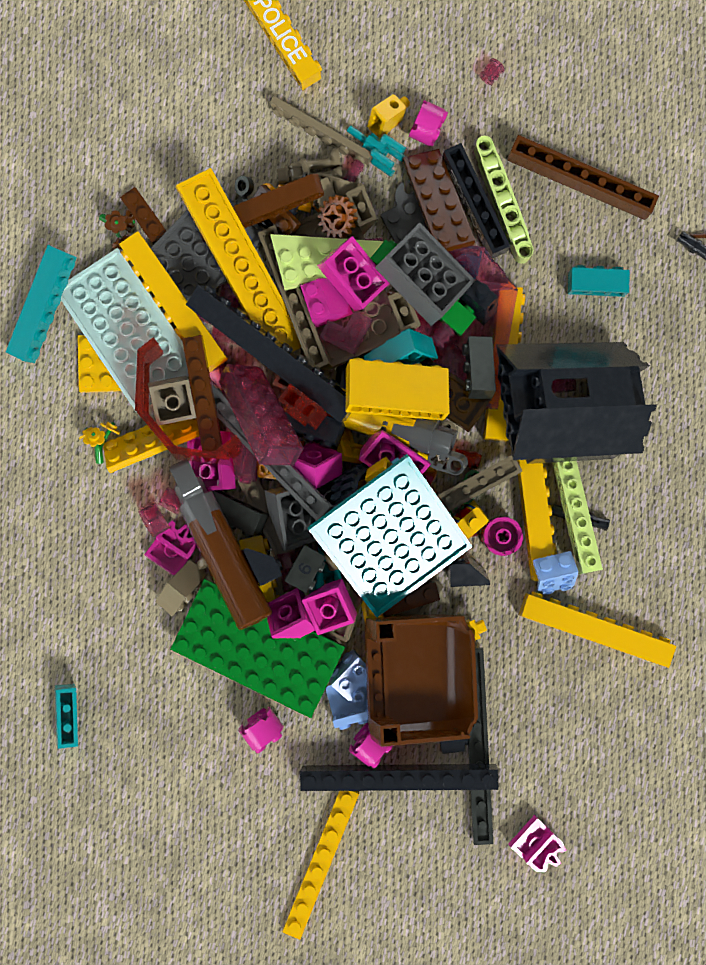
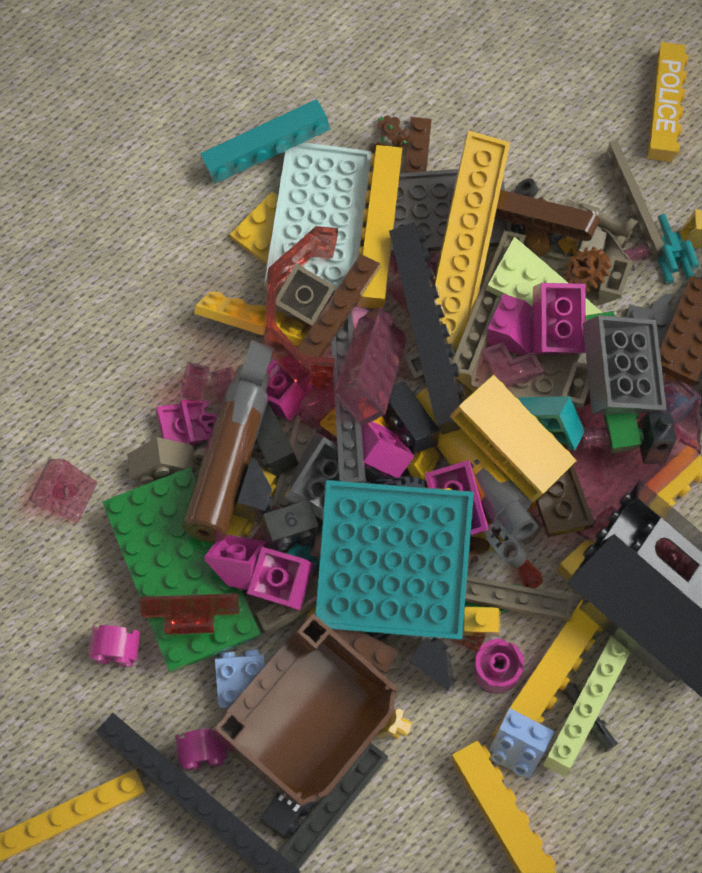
camera: 35 degrees right, 20 degrees down
(98, 438) = (210, 275): yellow plant -> none
(137, 659) = (63, 490): none -> clear pink slope
(294, 677) = (189, 612): none -> clear red bracket
(302, 407) = (414, 385): clear red brick -> none
(344, 711) = (204, 696): light blue bracket -> none
(479, 367) = (605, 487): pearl dark grey brick -> none

